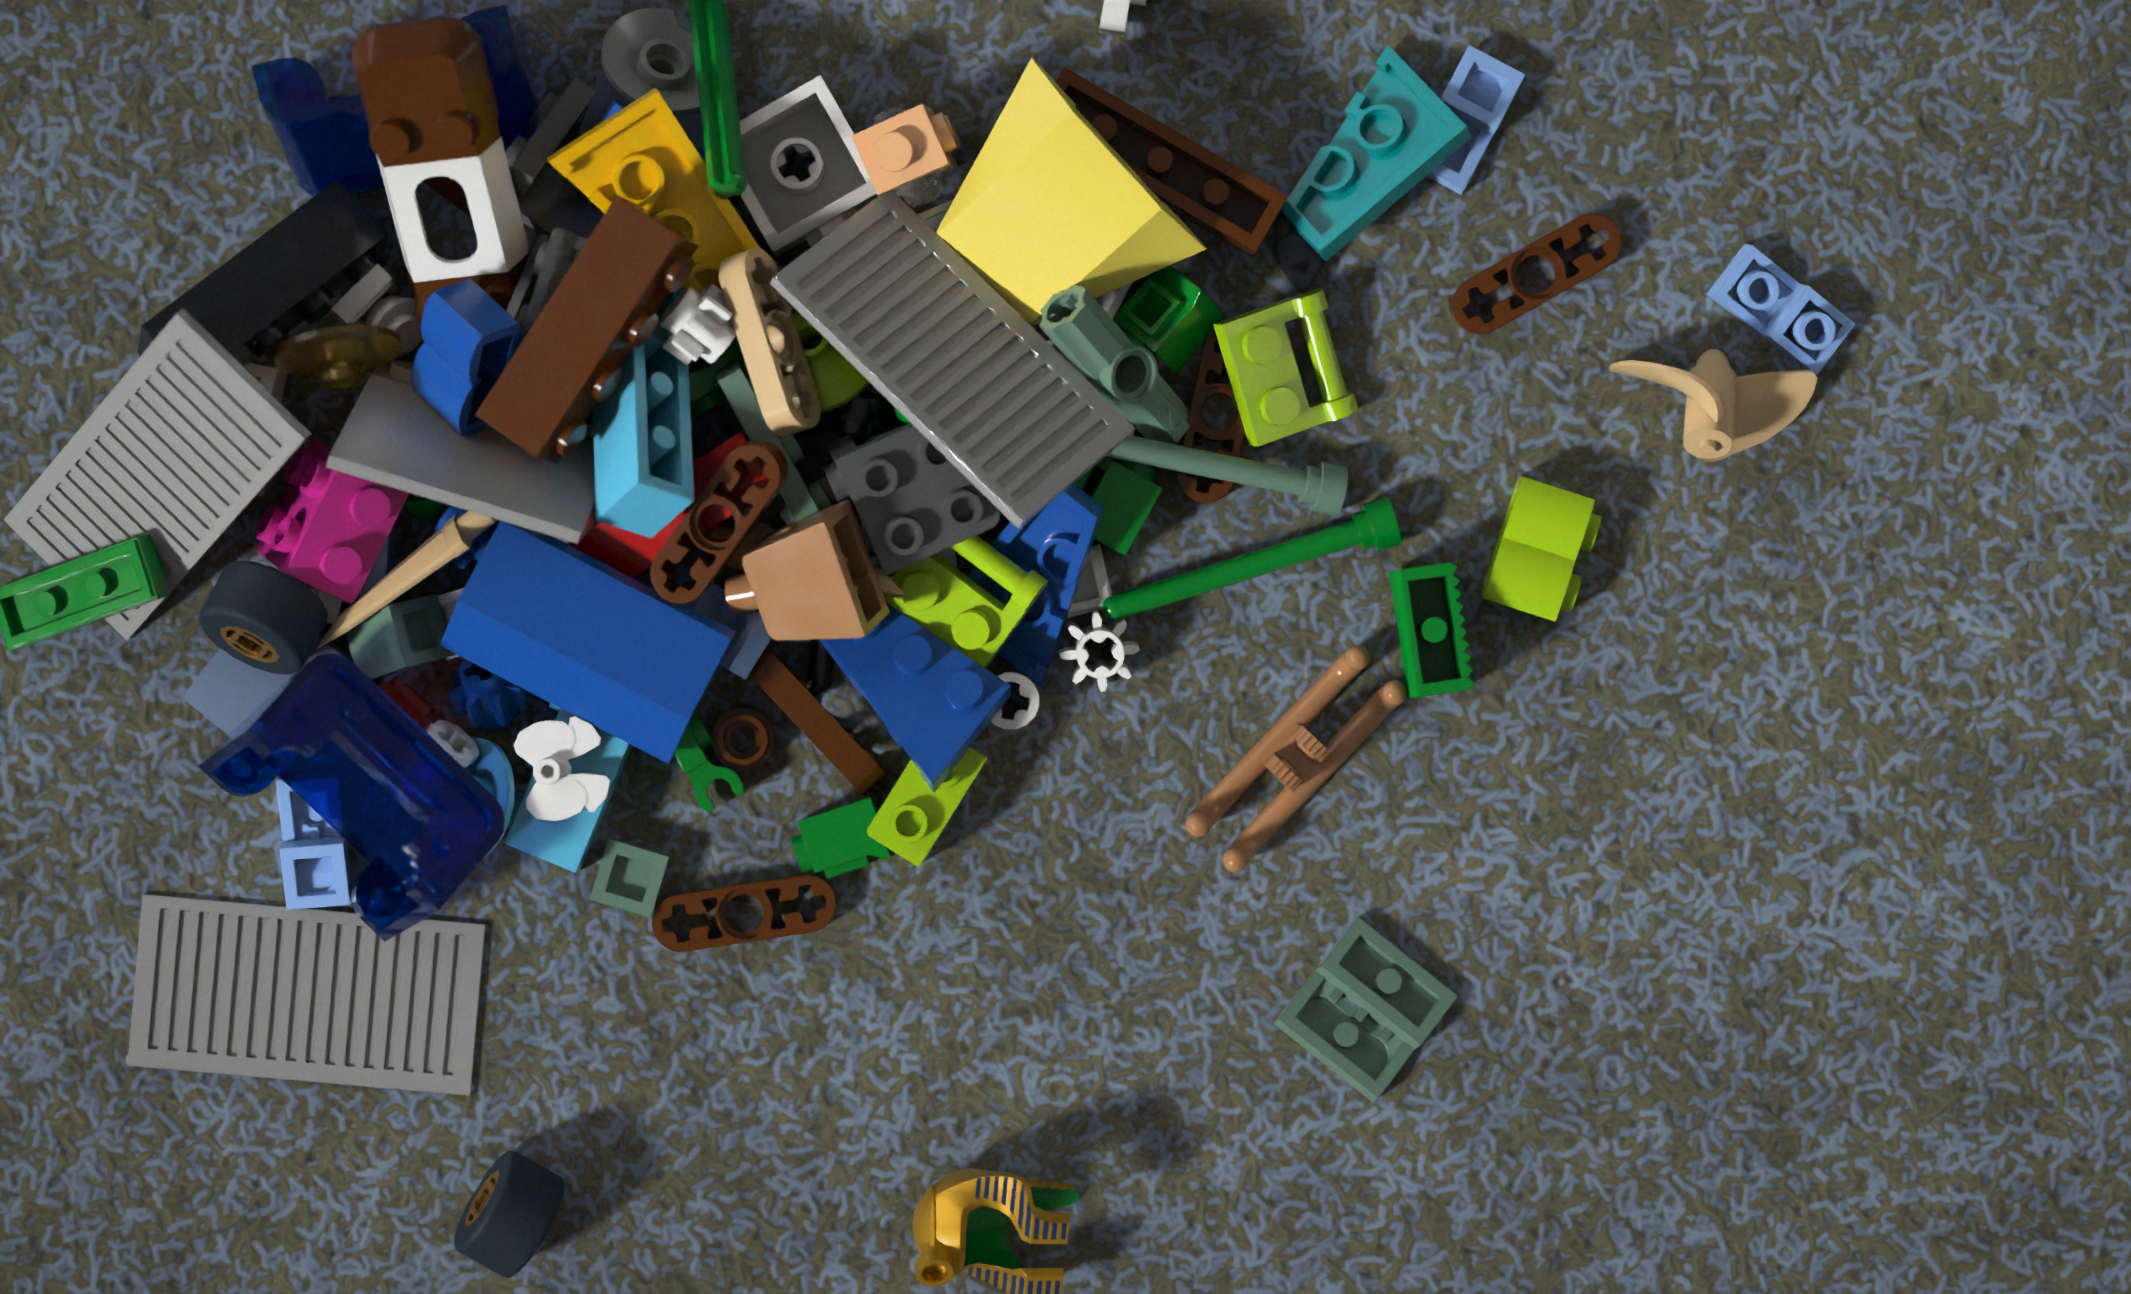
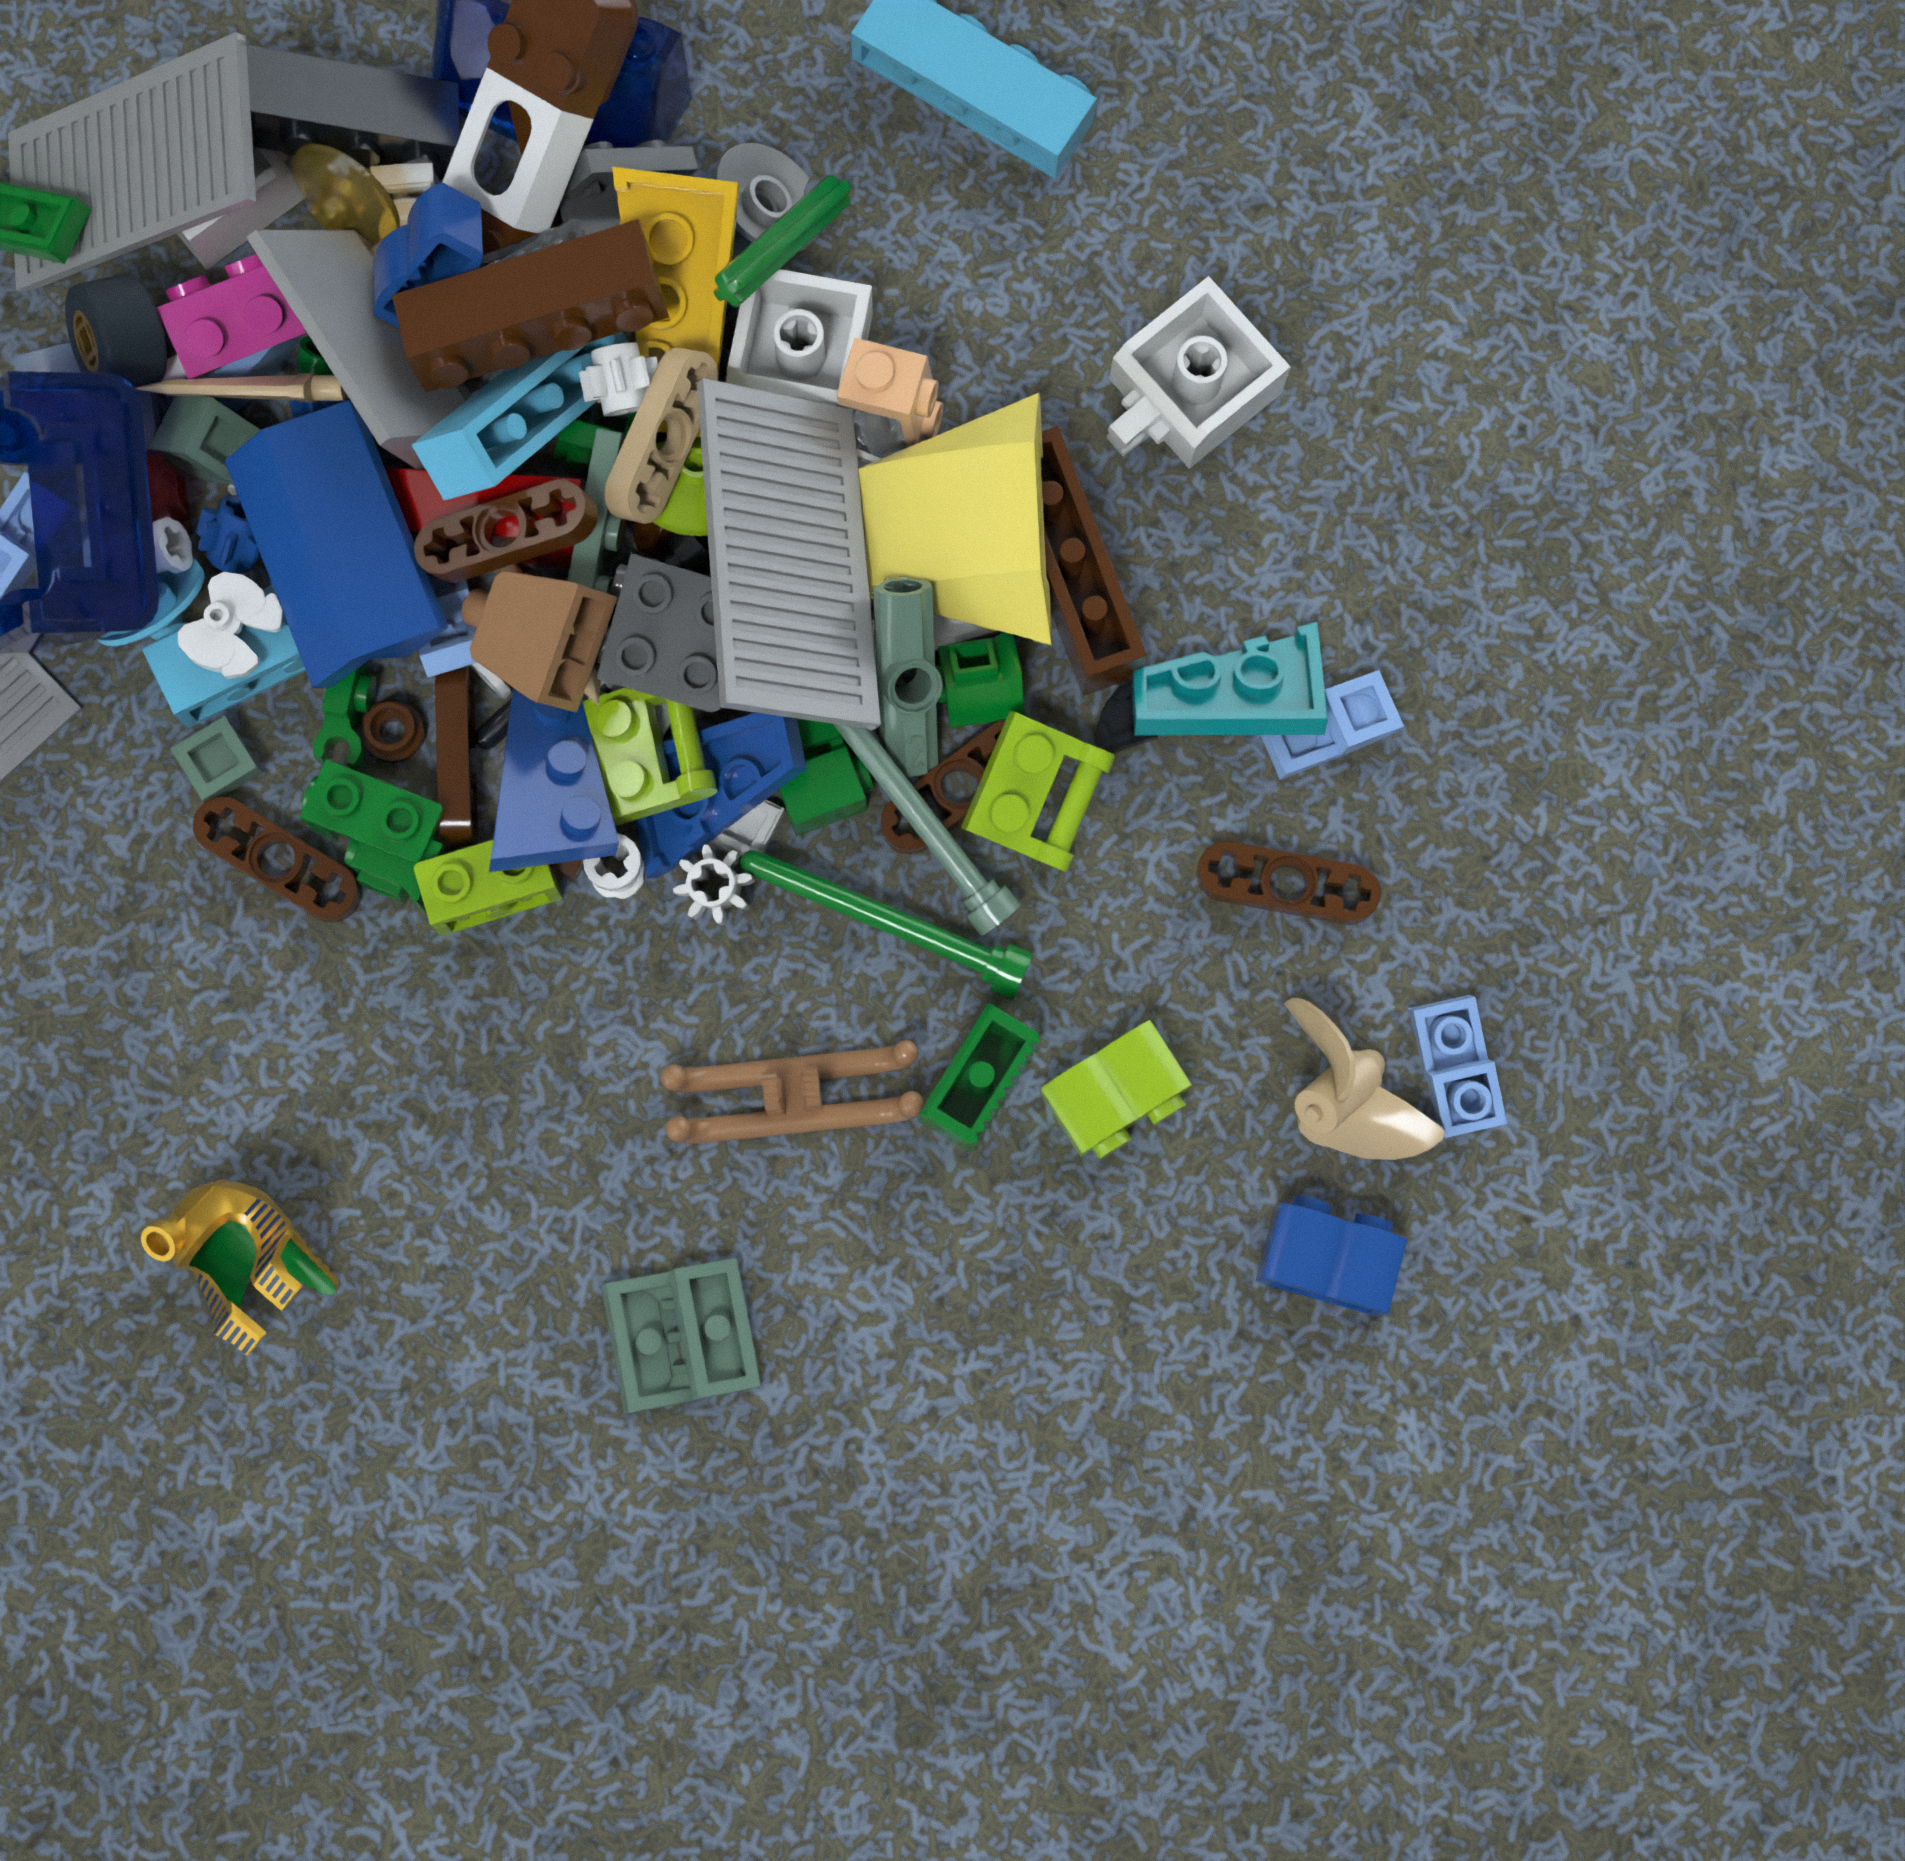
camera: 35 degrees right, 10 degrees down
(794, 820) = (370, 812): none -> green bracket
(1807, 540) = (1332, 1257): none -> blue brick

